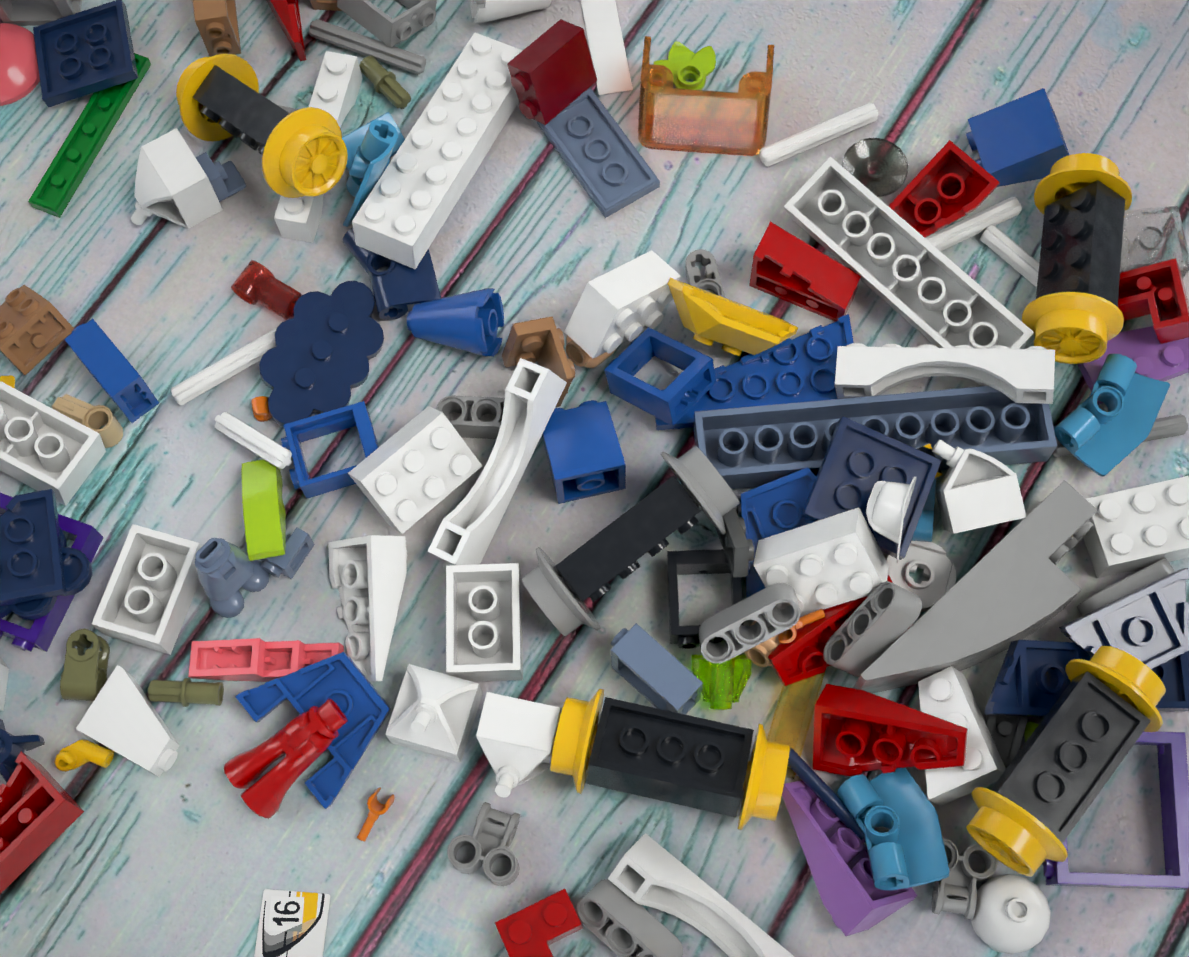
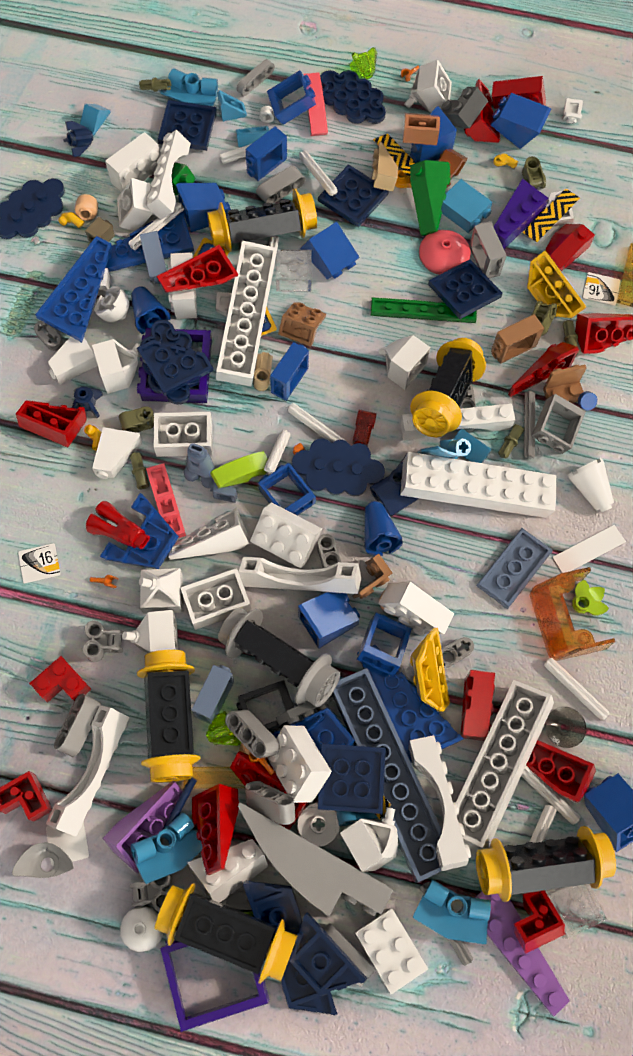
camera: 65 degrees right, 0 degrees up
(223, 178) = (418, 380): sand blue bracket -> none
(552, 71) = (547, 524): dark red brick -> none
(888, 508) = (335, 790): white piece -> none

